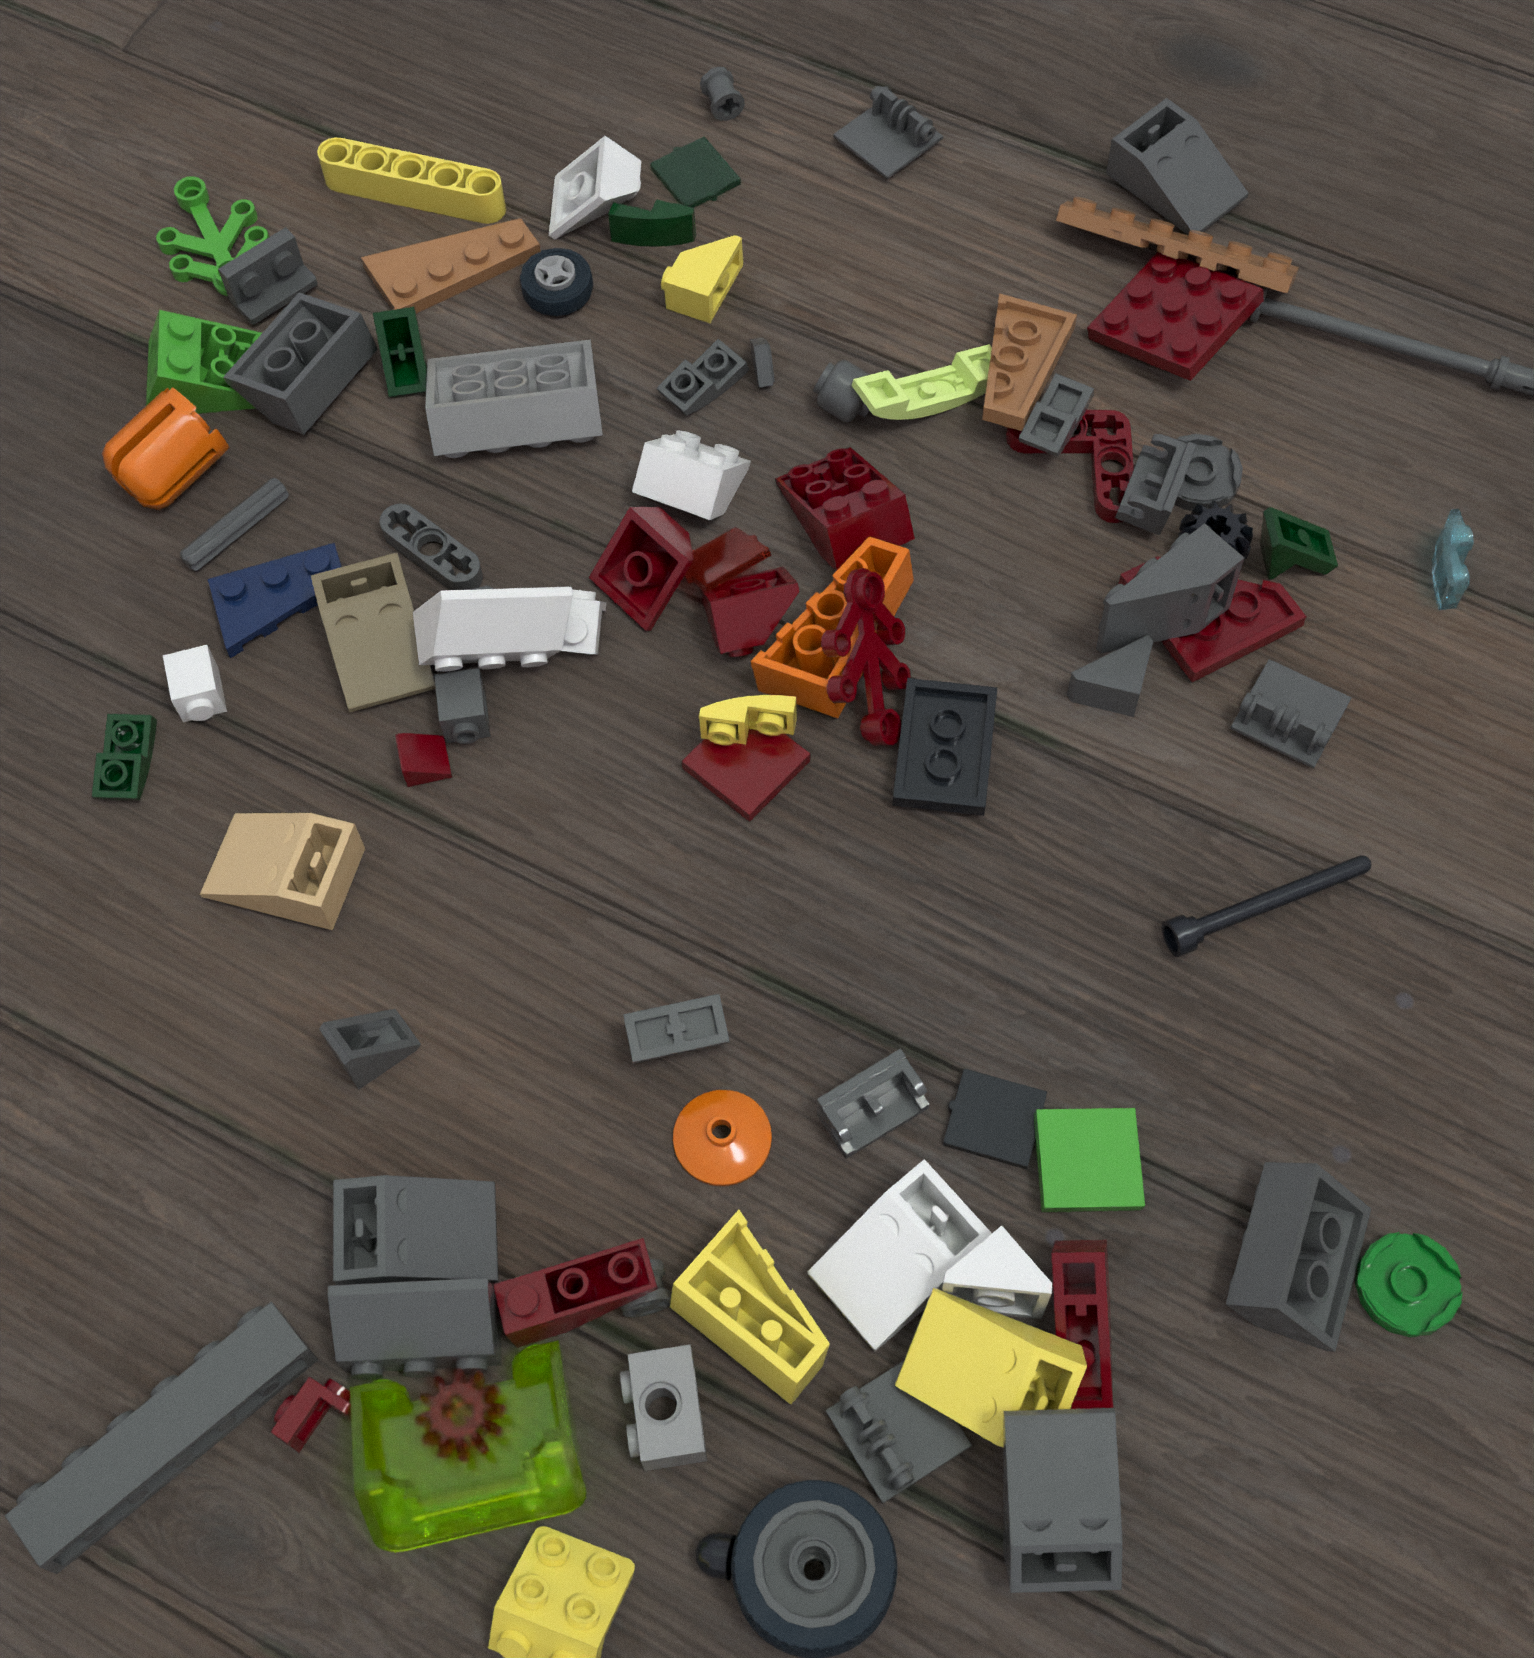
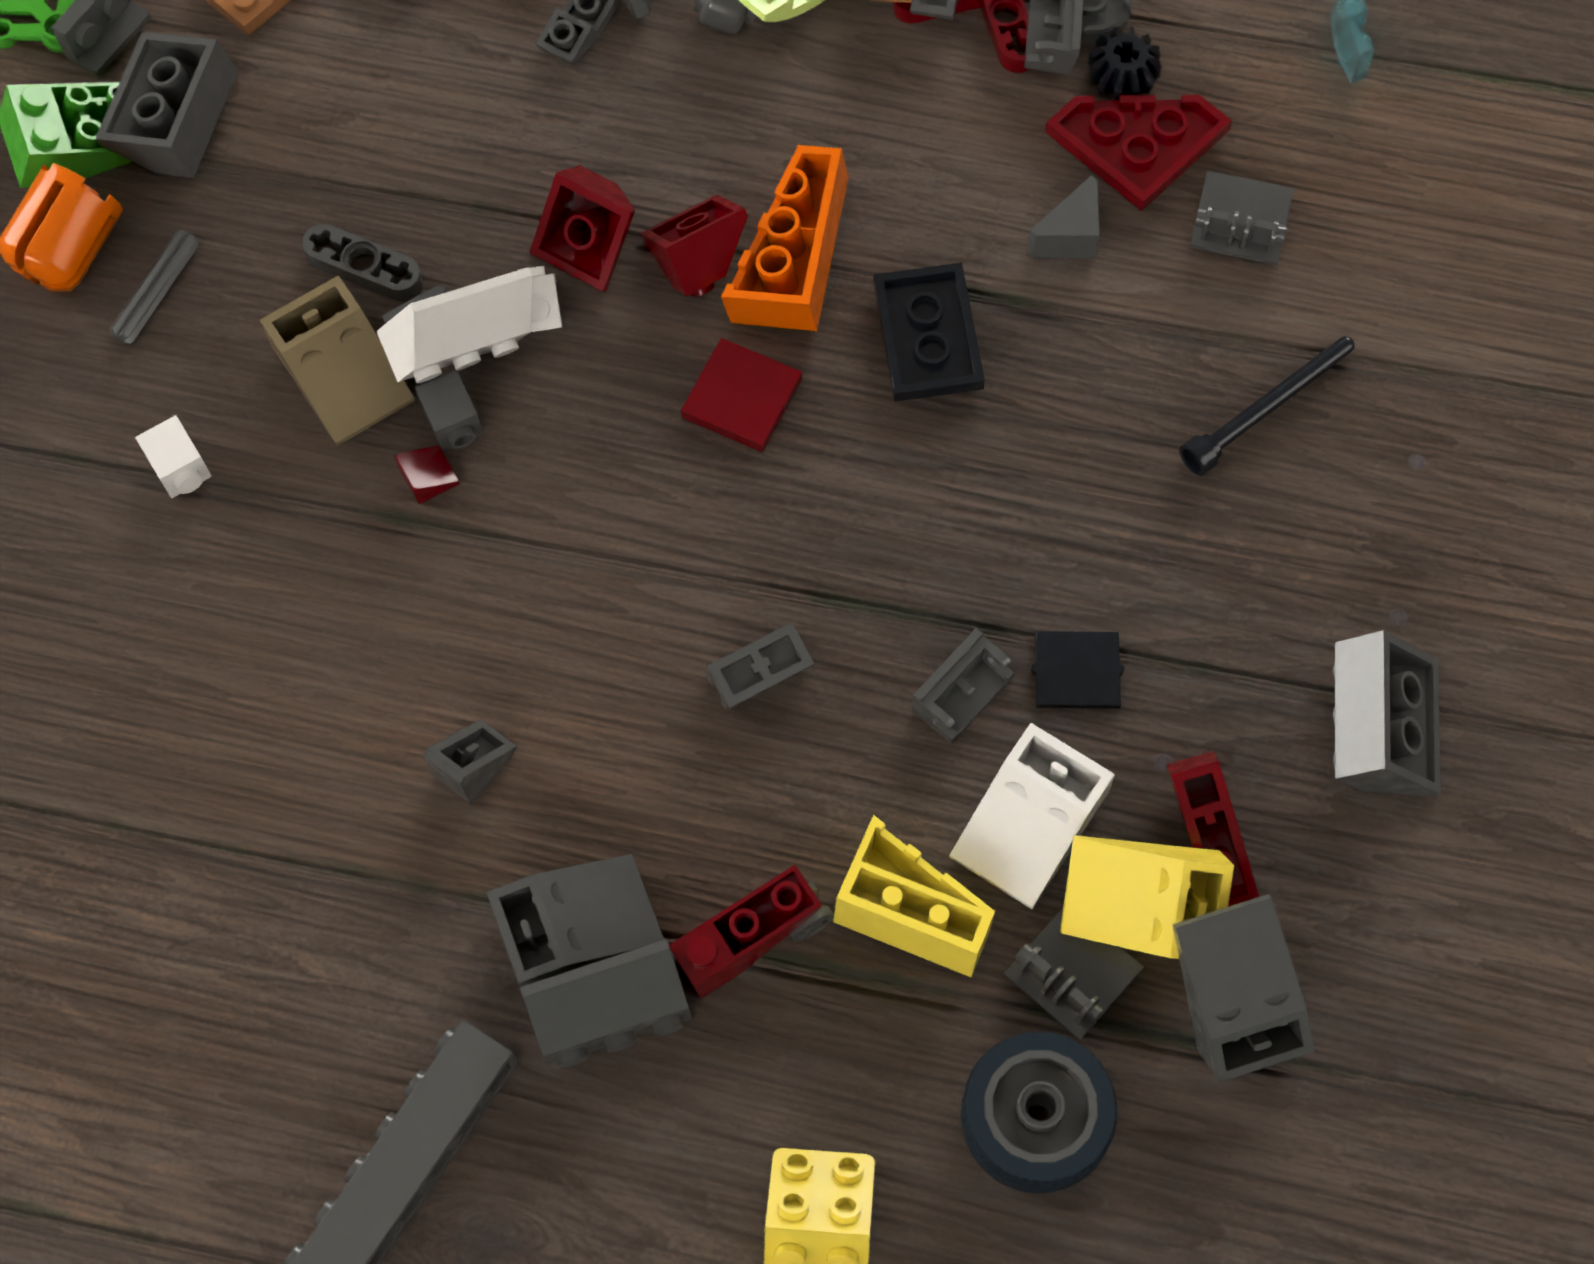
camera: 15 degrees left, 5 degrees up
(126, 757) = (127, 547): dark green slope -> none
(265, 594) = (214, 348): dark blue wing -> none
(286, 866) = (328, 611): tan slope -> none
(302, 1413) = (523, 1113): dark red bracket -> none
(401, 350) = (266, 68): dark green slope -> none
(422, 1501) = (694, 1103): clear neon green windscreen -> none
(445, 1431) = (684, 1056): clear red gear -> none
(512, 398) = (395, 88): light grey slope -> none
(678, 1438) = (859, 982): light grey brick -> none
(690, 474) = (598, 124): white slope -> none
(715, 1555) = (945, 1127): black hinge -> none
(725, 558) = (661, 200): clear red piece -> none
(726, 1159) = (835, 776): orange dish -> none
(731, 719) = (717, 359): light yellow slope -> none
(844, 503) = (761, 118): dark red slope -> none
(864, 598) = (817, 207): dark red plant -> none
(1000, 1278) = (1132, 810): white slope -> none
(1088, 1160) = (1174, 683): bright green tile -> none
(1174, 593) = (1106, 129): dark grey slope -> none
(1293, 541) = (1200, 50): dark green slope -> none
(1408, 1284) = (1489, 717): green tile -> none

